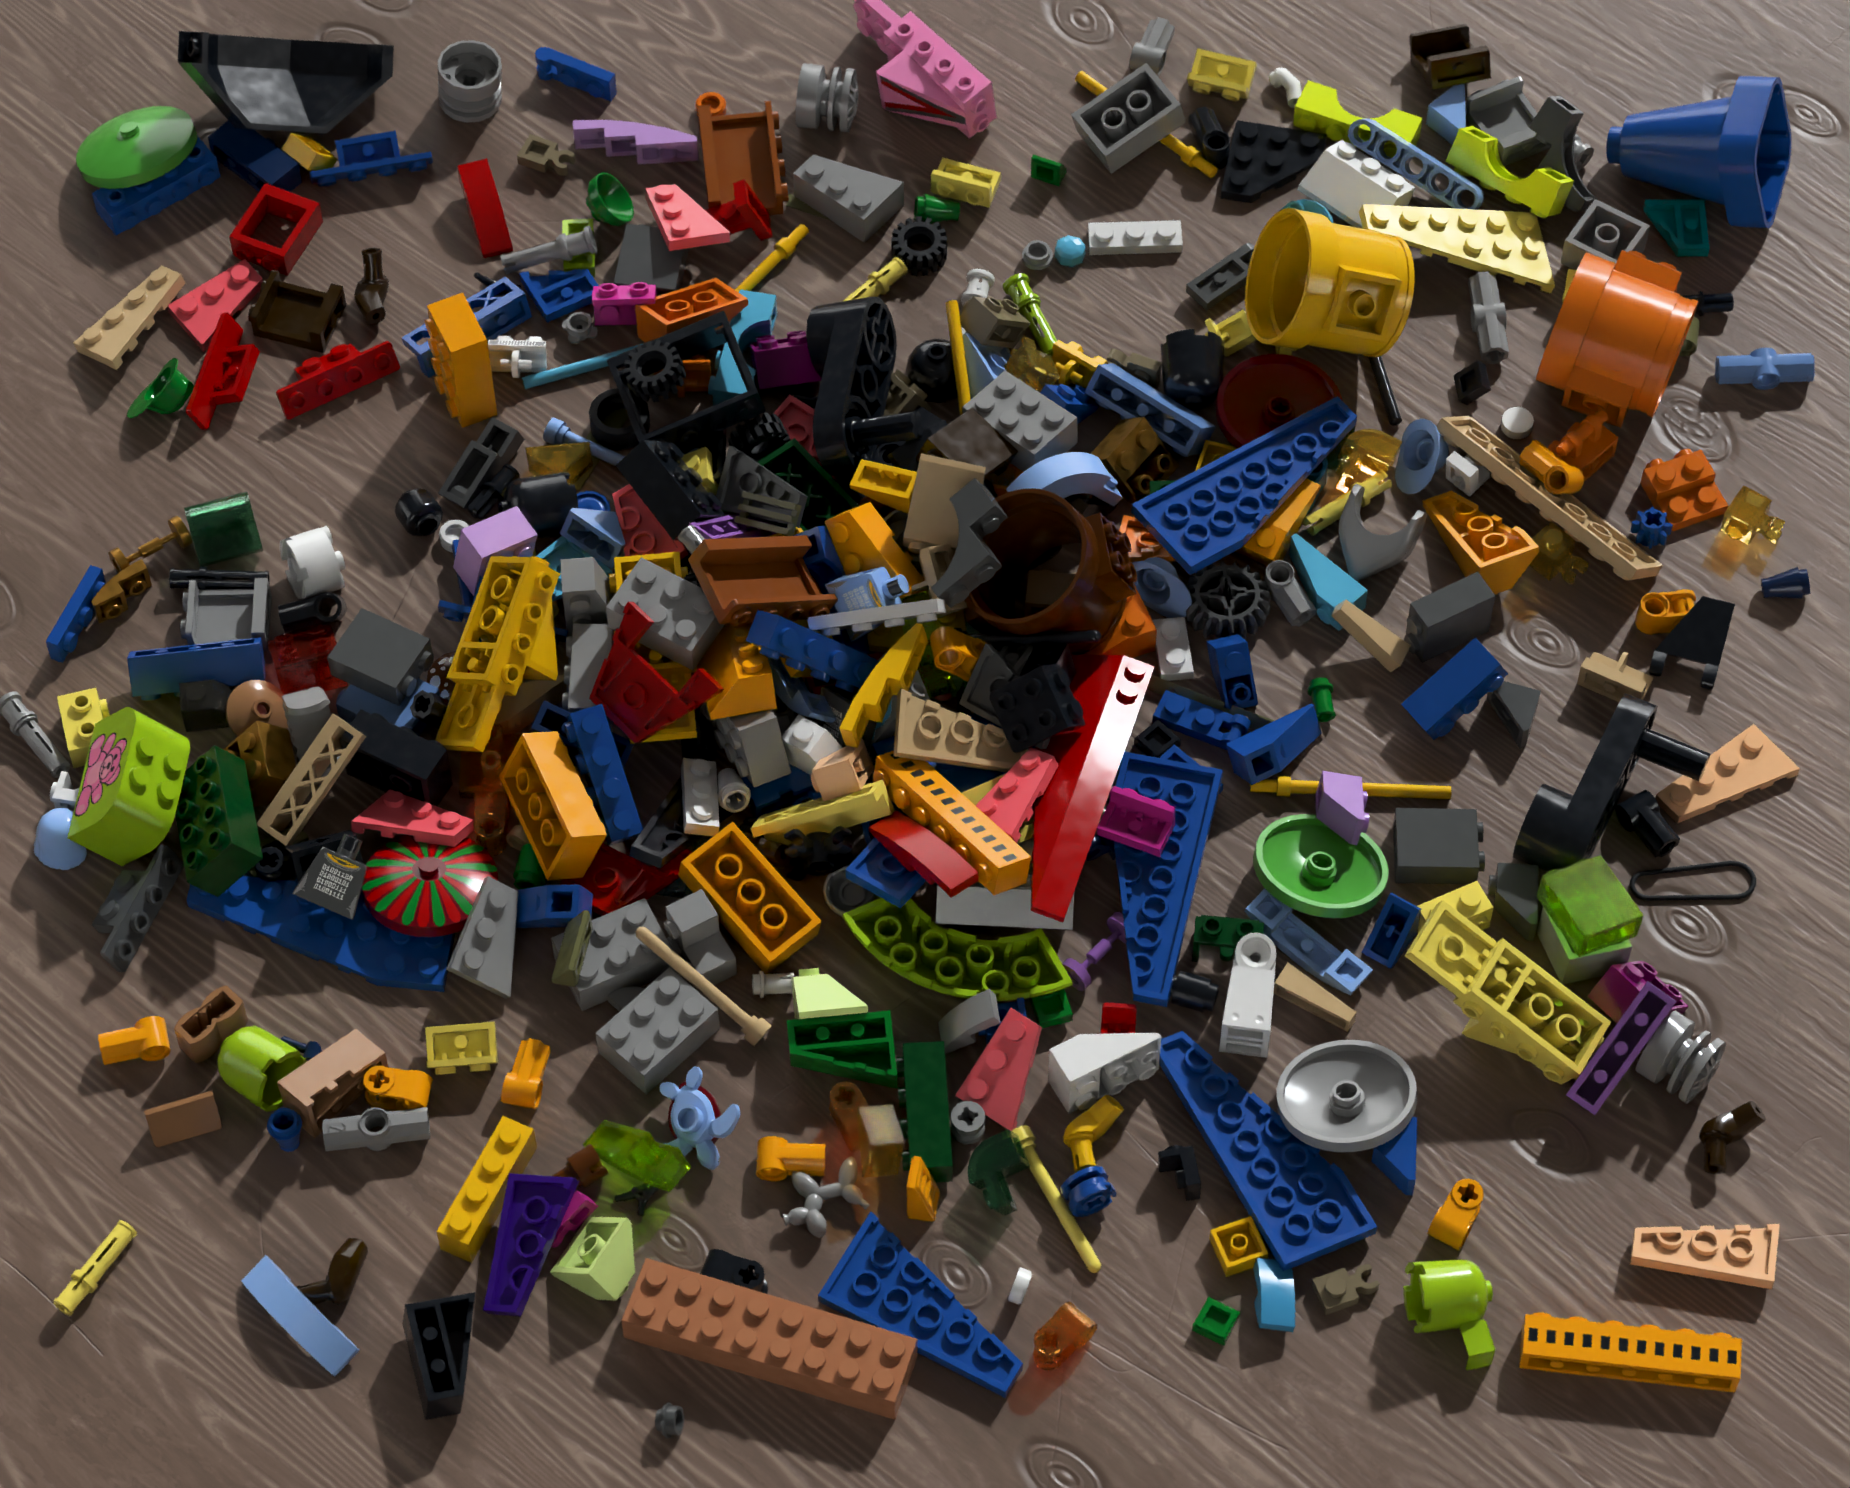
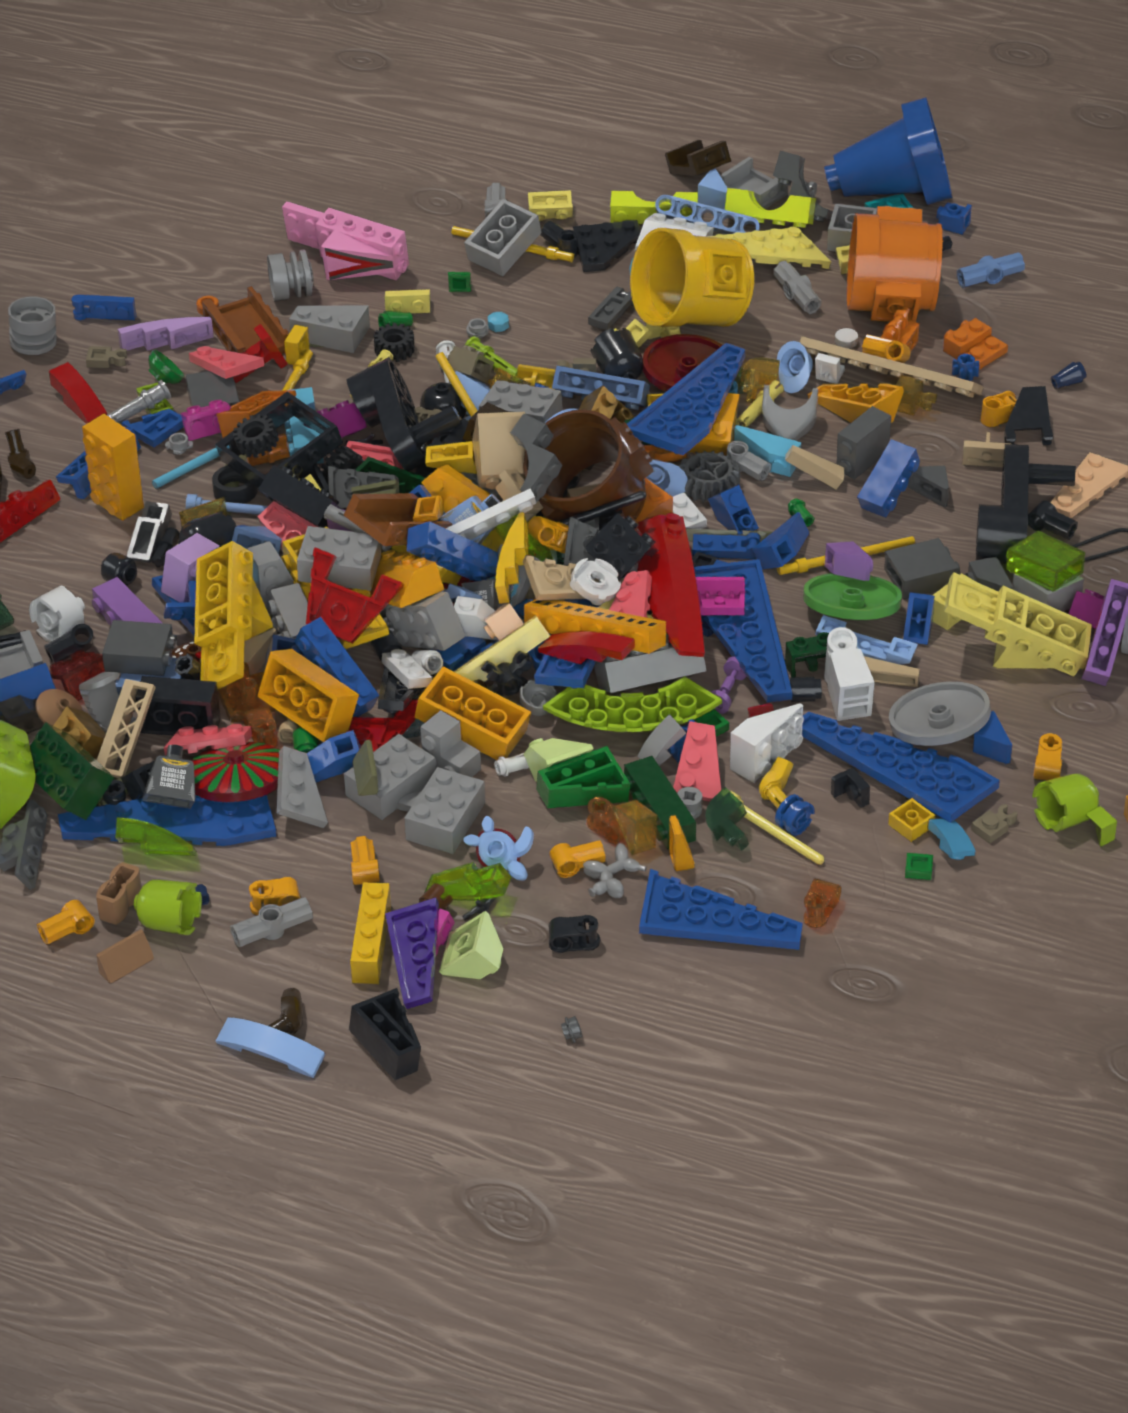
camera: 20 degrees left, 15 degrees down
(86, 1279) = (100, 1069): light yellow pin -> none
(285, 1128) = (206, 937): blue cone -> none
(286, 952) = (152, 838): none -> clear neon green slope
(330, 1080) = (223, 903): medium nougat wedge -> none
(400, 583) = (118, 602): none -> medium lavender brick
(451, 531) = (145, 578): white tile -> none
(461, 1046) = (308, 858): light yellow bracket -> none
(517, 356) = (151, 466): white hips -> none
(751, 1026) = (510, 790): tan piece -> none
(770, 1338) = (619, 959): nougat brick -> none
(790, 213) = (296, 343): none -> yellow piece
(812, 572) = (428, 509): none -> light orange slope
(984, 732) = (595, 592): none -> white plate
(1020, 1286) = (776, 882): white tile -> none
(1135, 237) = (538, 304): white plate -> none
(1289, 82) = (599, 201): white arm -> none
(1385, 390) = (748, 341): black bar -> none
(1472, 382) = (806, 322): black plate -> none
(1749, 515) = (1024, 346): clear yellow brick -> none
(1757, 262) = (954, 217): none -> blue brick

